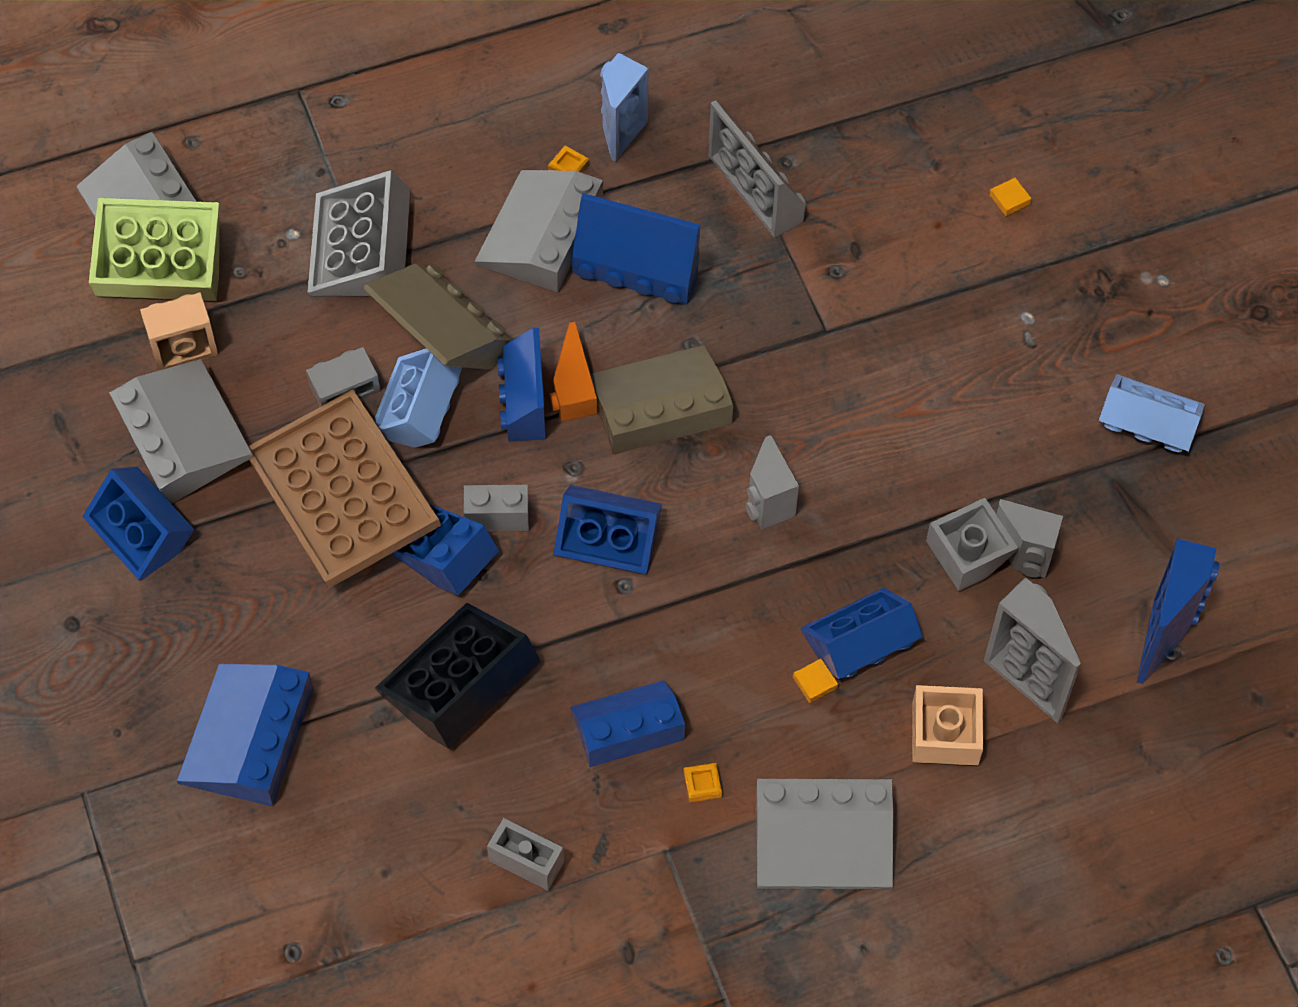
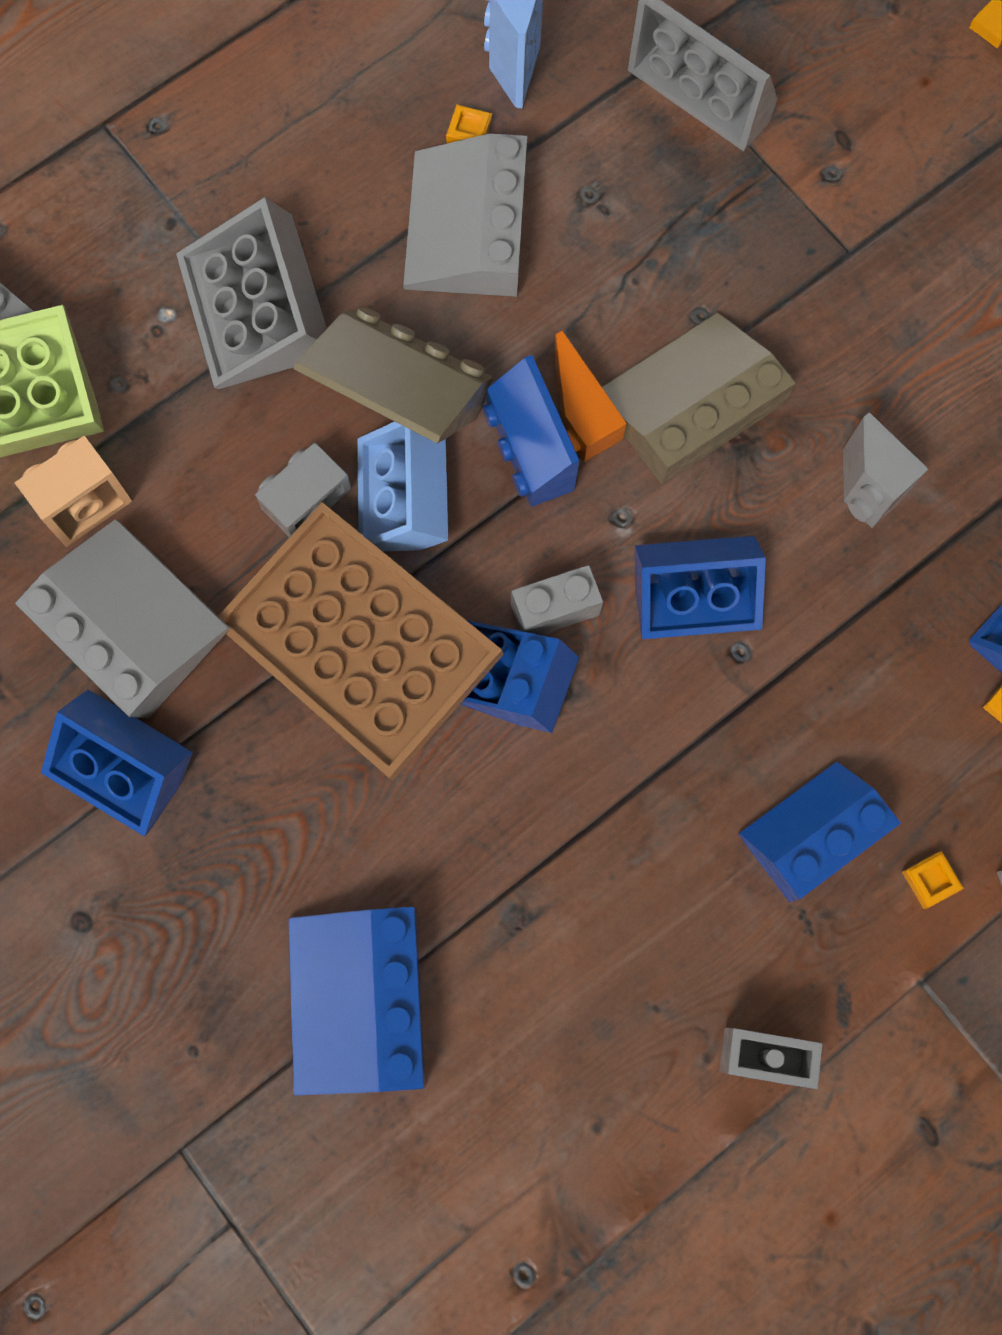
camera: 20 degrees left, 15 degrees up
(459, 674) = (591, 837): black slope -> none
(636, 249) = (605, 213): blue slope -> none

